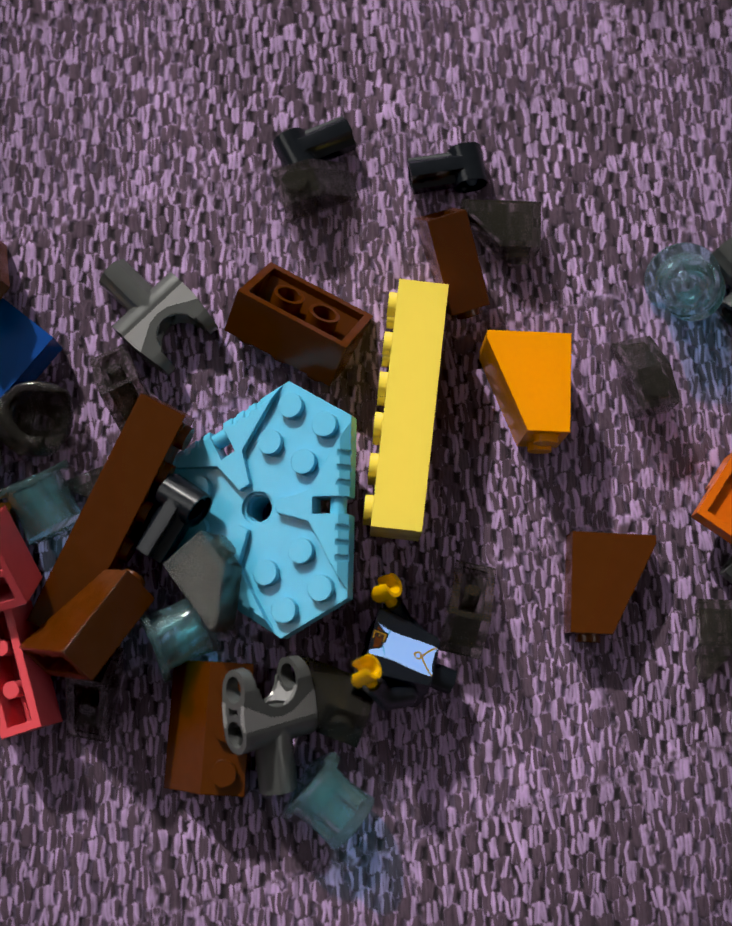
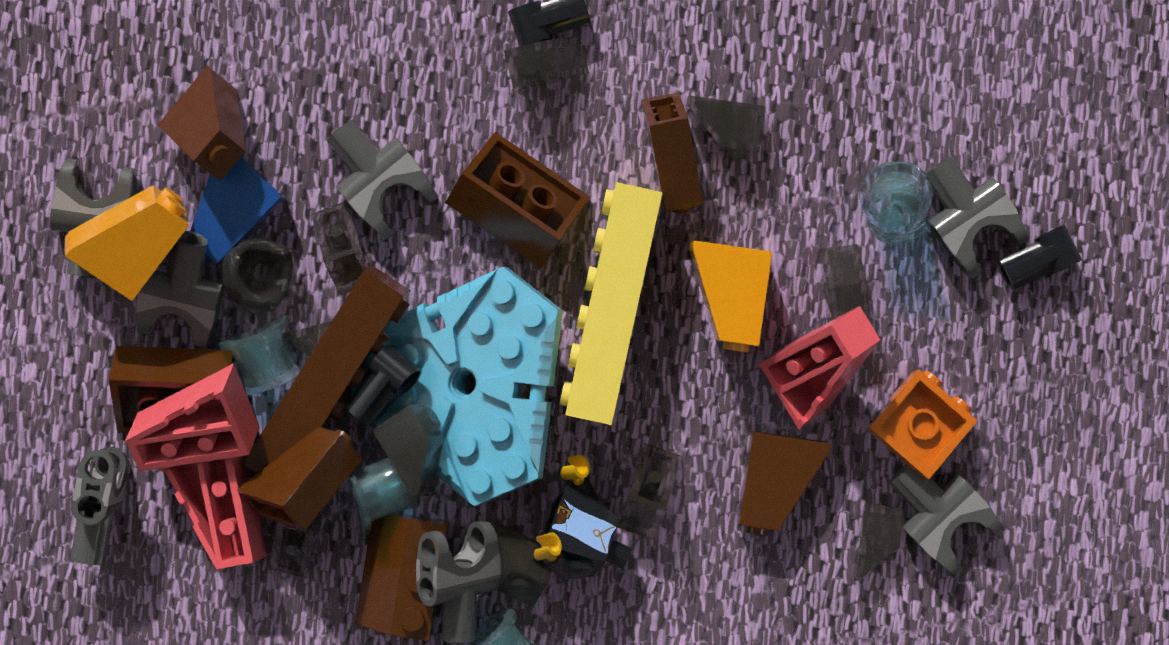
camera: 10 degrees right, 10 degrees up
(457, 169) = (689, 57): black piece -> none
(635, 449) = (820, 364): none -> coral wedge

